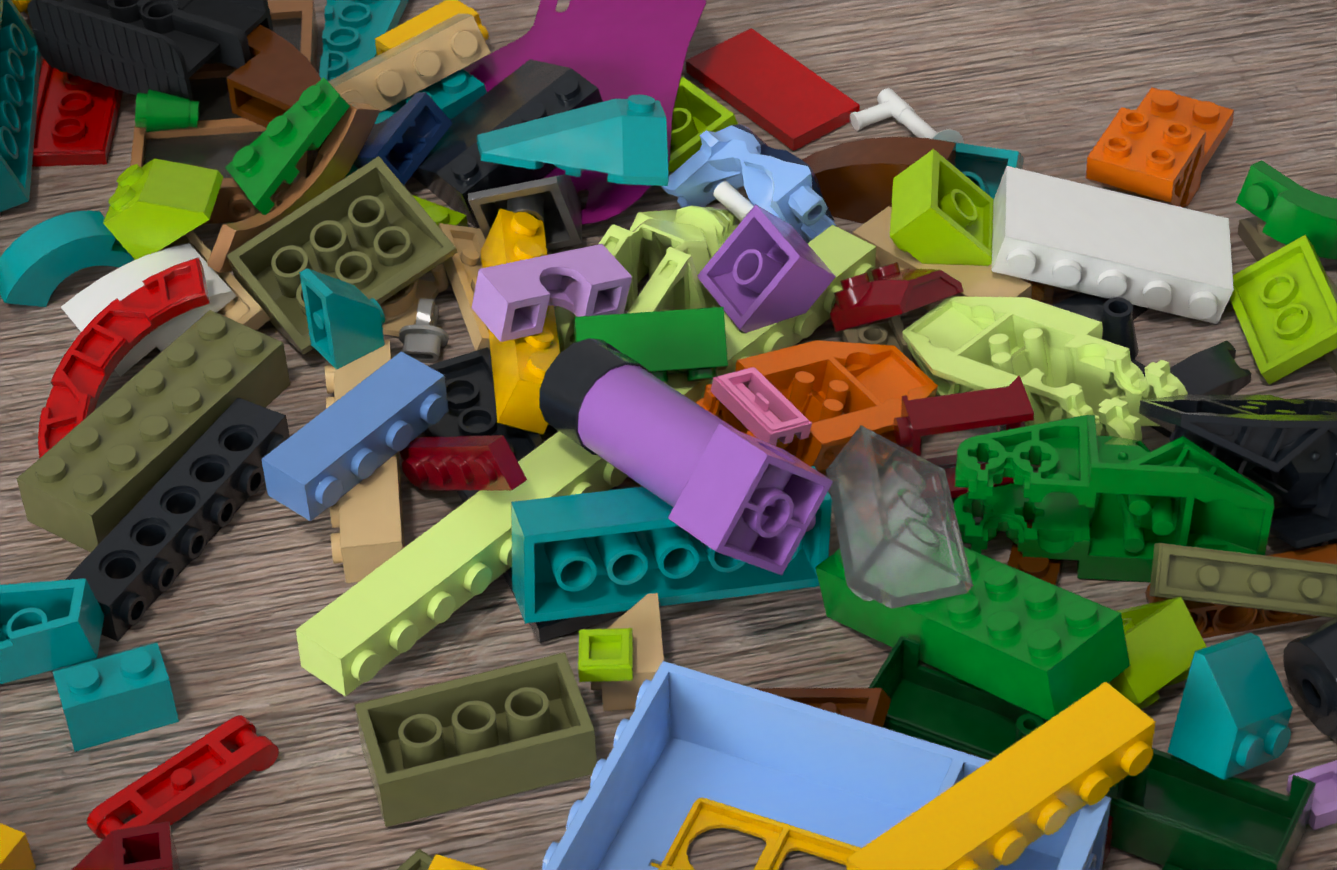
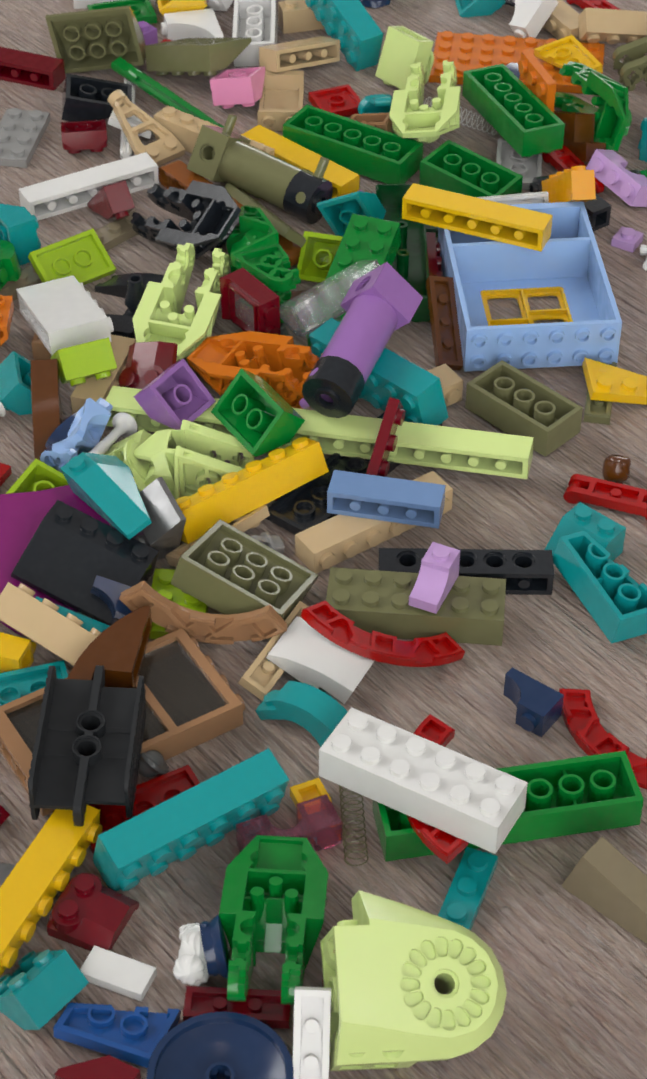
camera: 120 degrees left, 0 degrees up
(122, 118) = (152, 764): none -> dark grey piece
(134, 408) = (436, 577): none -> lavender arch
(160, 204) = (255, 661): lime slope -> none
(165, 112) = (165, 711): green cone -> none
(240, 814) = (616, 468): none -> reddish brown piece
(276, 152) = (181, 616): green wing -> none
(340, 318) = (311, 532): teal slope -> none
(516, 294) = (270, 450): lavender arch -> none
(605, 655) = (453, 377): lime tile -> none
(736, 394) = (289, 352): bright pink tile -> none

